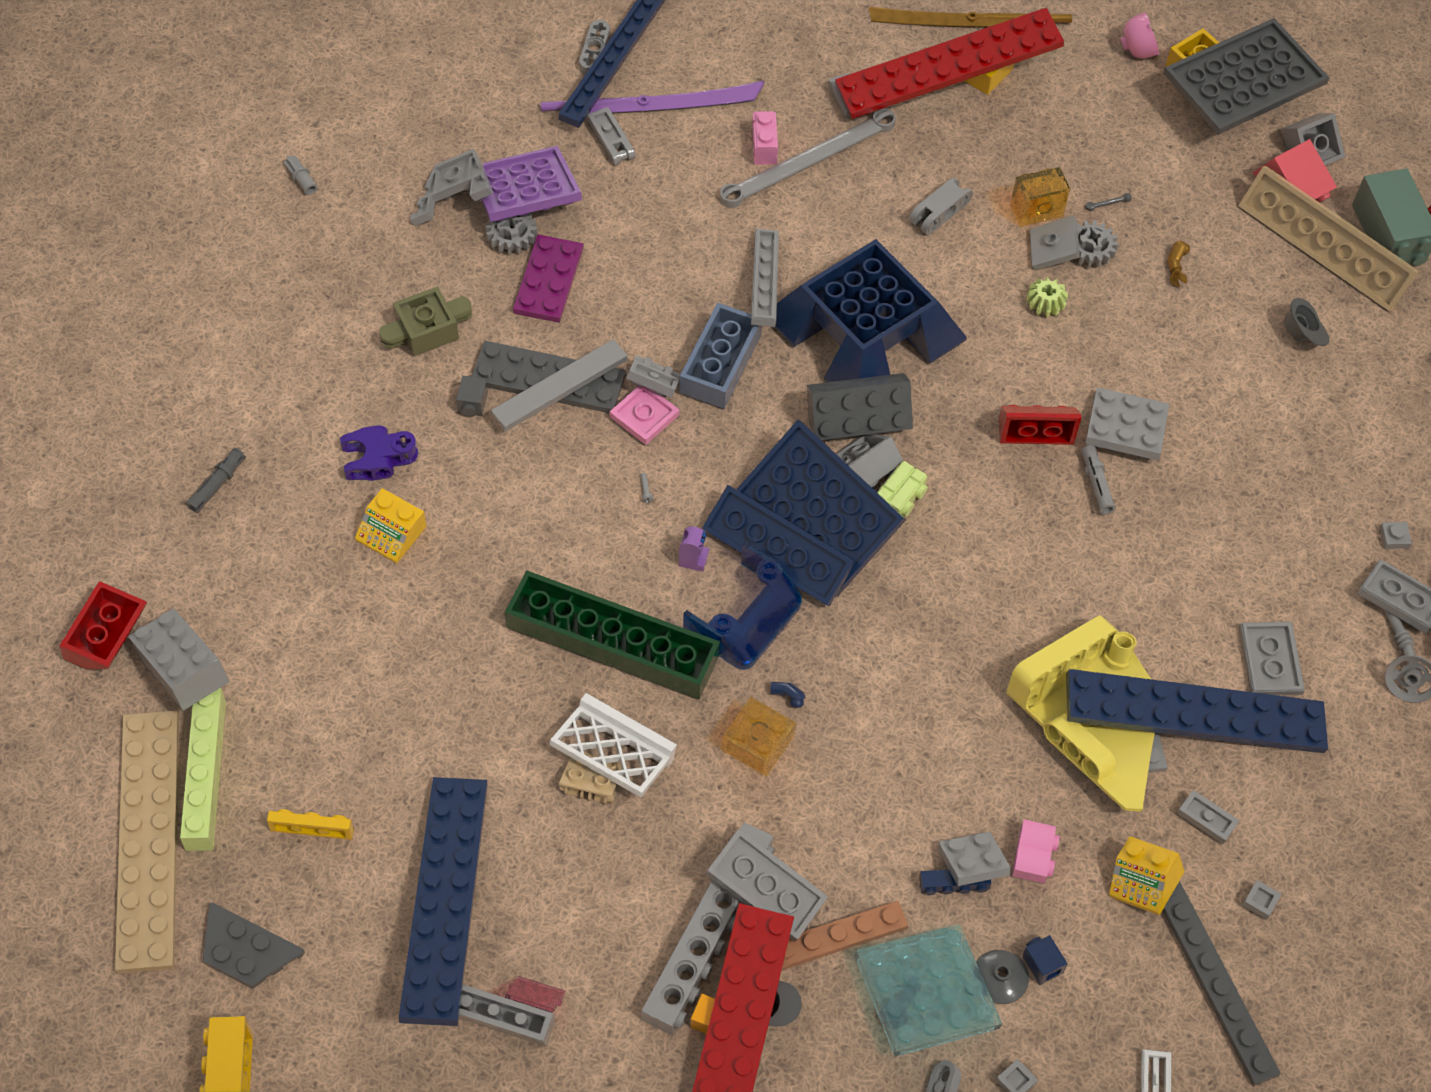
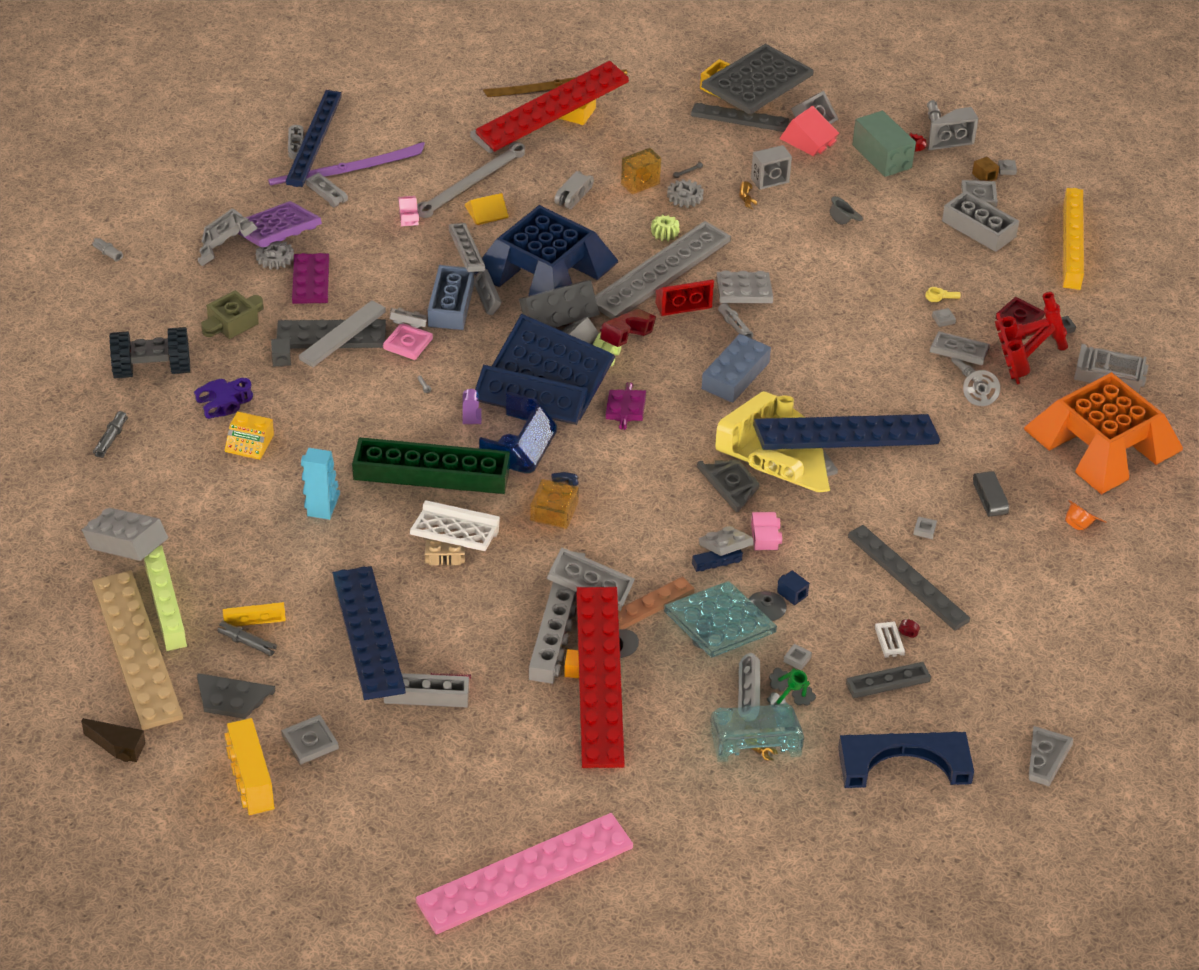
camera: 15 degrees left, 15 degrees down
(82, 992) = (118, 740): none -> dark brown slope
(101, 627) = (59, 530): red slope -> none
(272, 360) = (126, 352): none -> black plate
(286, 855) = (238, 634): none -> dark grey pin
(322, 1050) = (310, 739): none -> light grey plate
(449, 642) = (319, 483): none -> medium azure wedge
(706, 196) = (408, 211): none -> bright pink brick
(764, 138) = (437, 171): bright pink brick -> none
(773, 355) = (487, 292): none -> light grey plate
(815, 213) = (487, 209): none -> yellow slope
(906, 587) = (626, 405): none -> magenta plate
(924, 470) = (634, 322): none -> dark red arch
(1012, 753) = (731, 481): none -> dark grey wing
(1019, 368) = (661, 270): none -> light grey plate
(1054, 243) = (659, 196): light grey plate -> none
(1075, 561) = (736, 368): none -> sand blue brick
(1139, 37) = (677, 73): bright pink cylinder -> none
(1145, 875) = (844, 525): yellow slope -> none
(1187, 1071) = (909, 628): none -> dark red tile
(1190, 119) = (739, 117): none -> dark grey plate
(1208, 817) = (874, 490): light grey plate -> none
(1223, 227) = (771, 167): none -> light grey brick
(1271, 658) = (885, 397): light grey tile -> none
(1328, 238) = (845, 162): tan plate -> none
(1374, 863) = (991, 493): none -> dark grey beam
(1394, 494) = (937, 294): none -> light yellow plate

